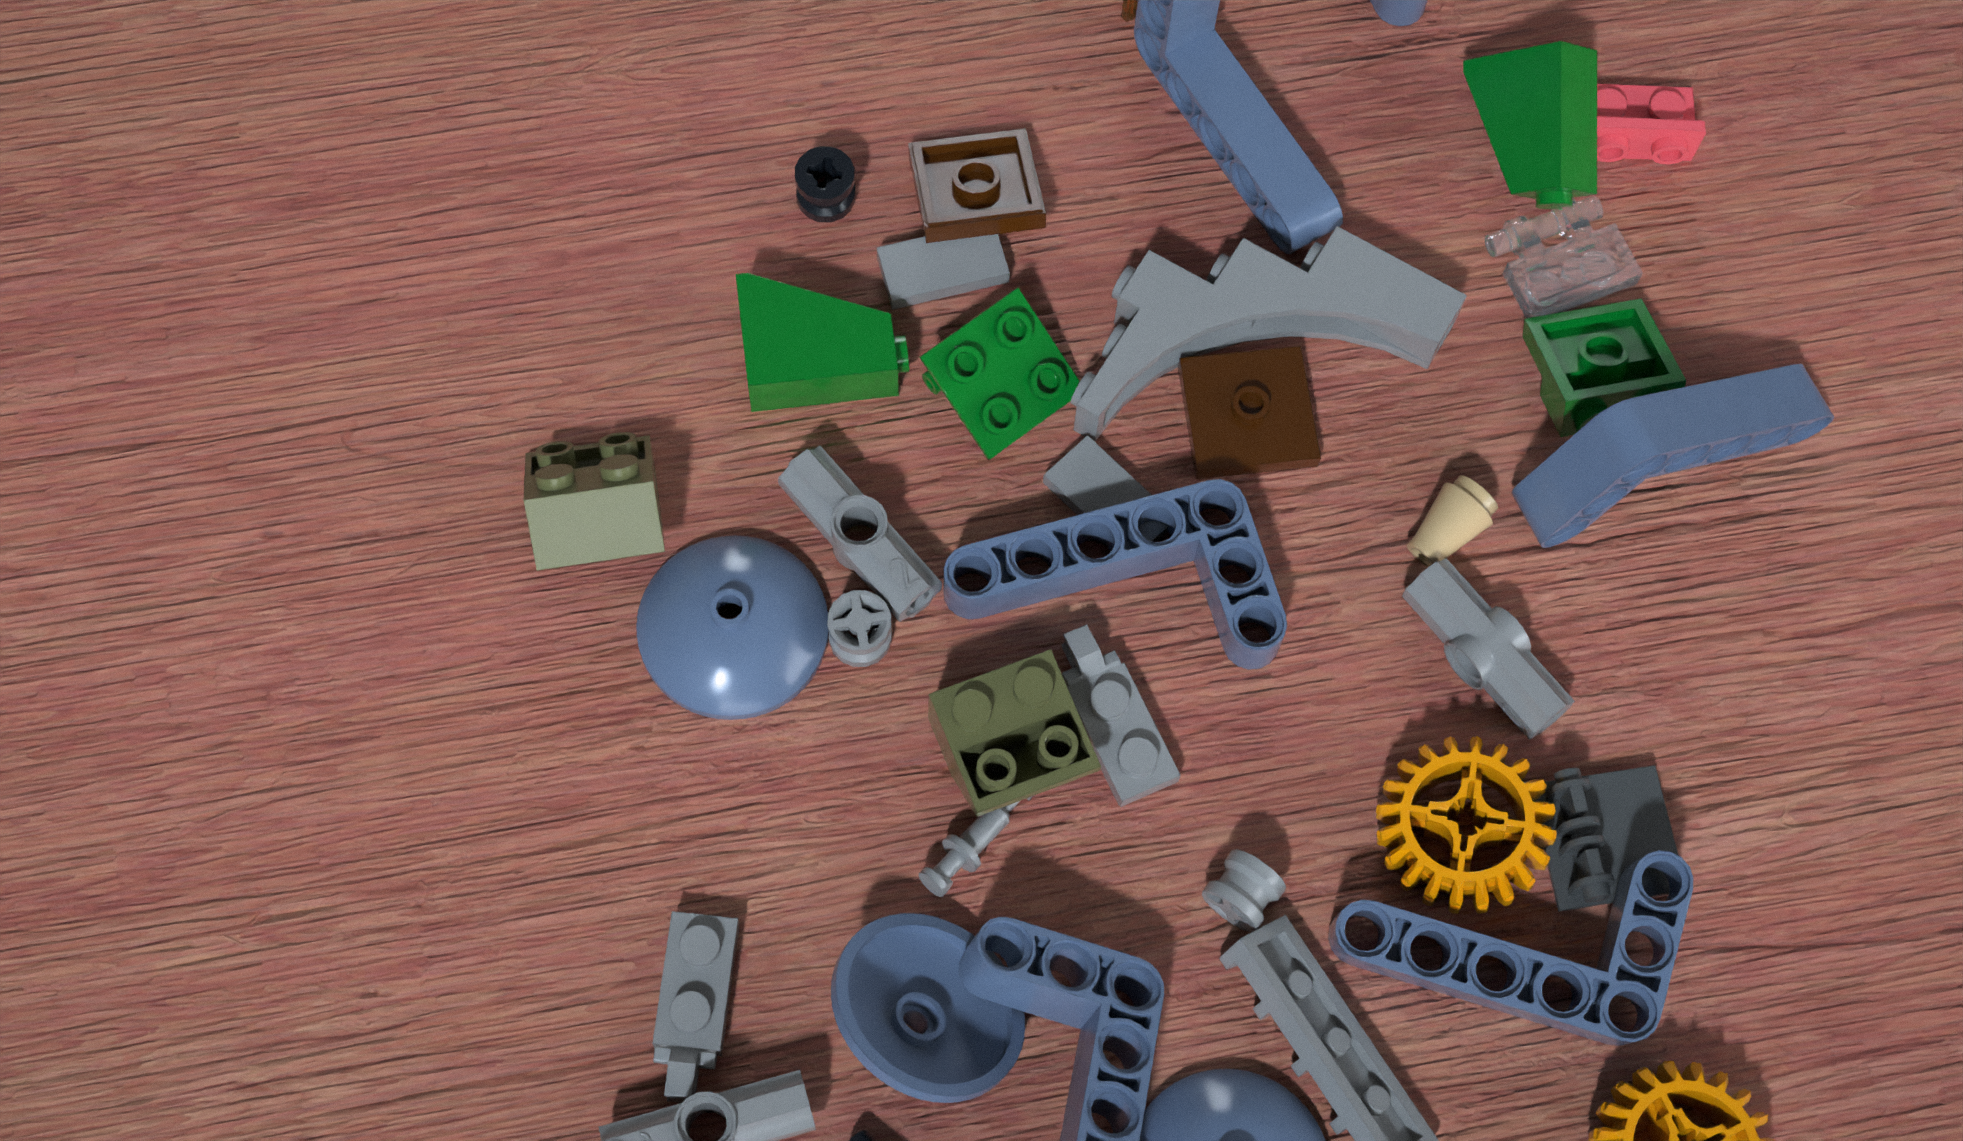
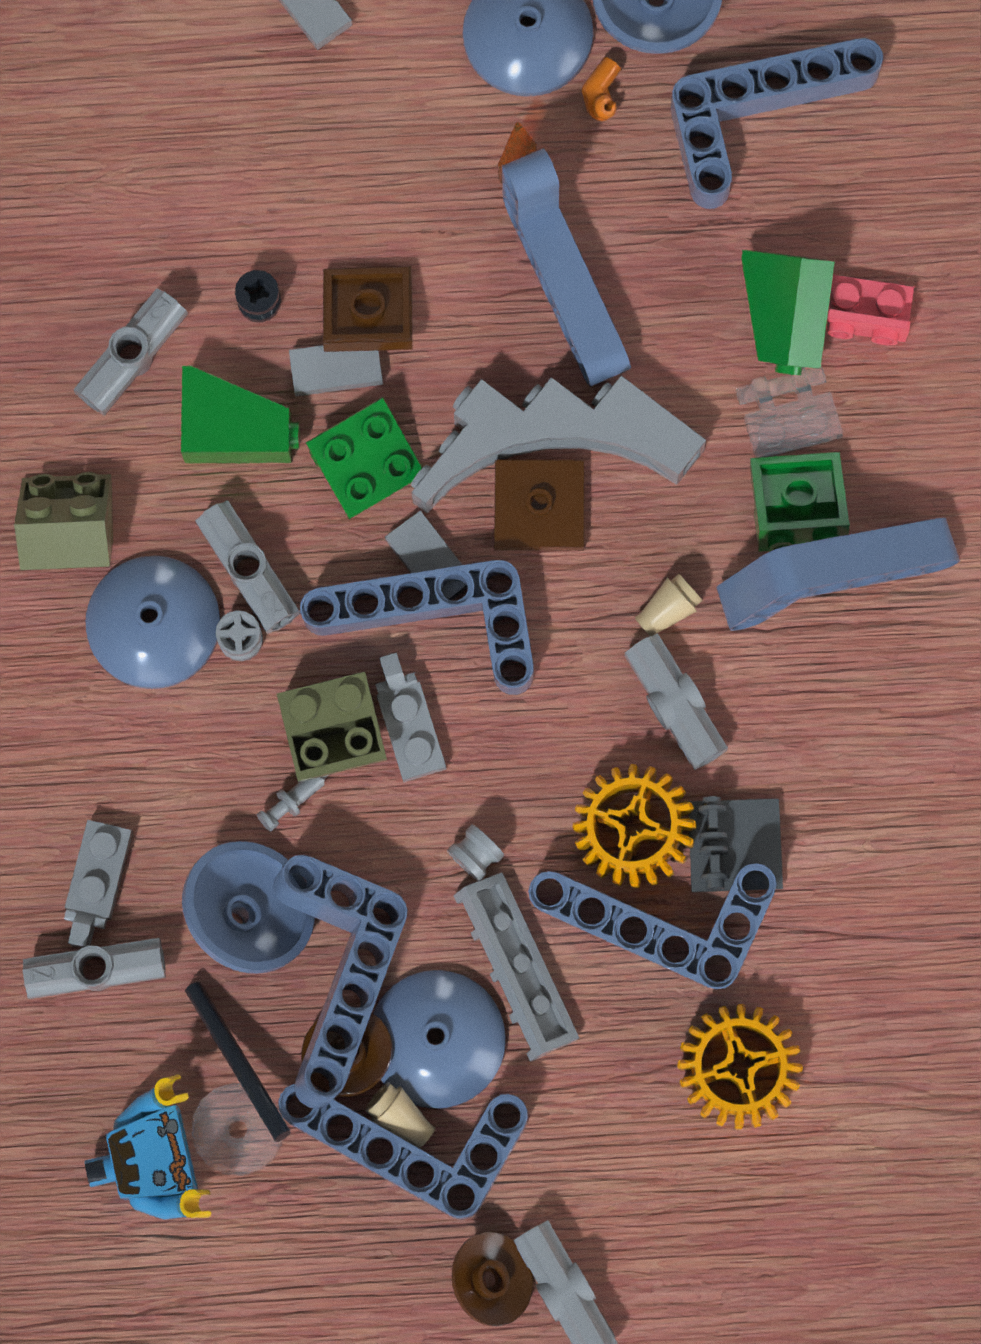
camera: 15 degrees right, 10 degrees up
(643, 298) = (113, 374): none -> light grey piece

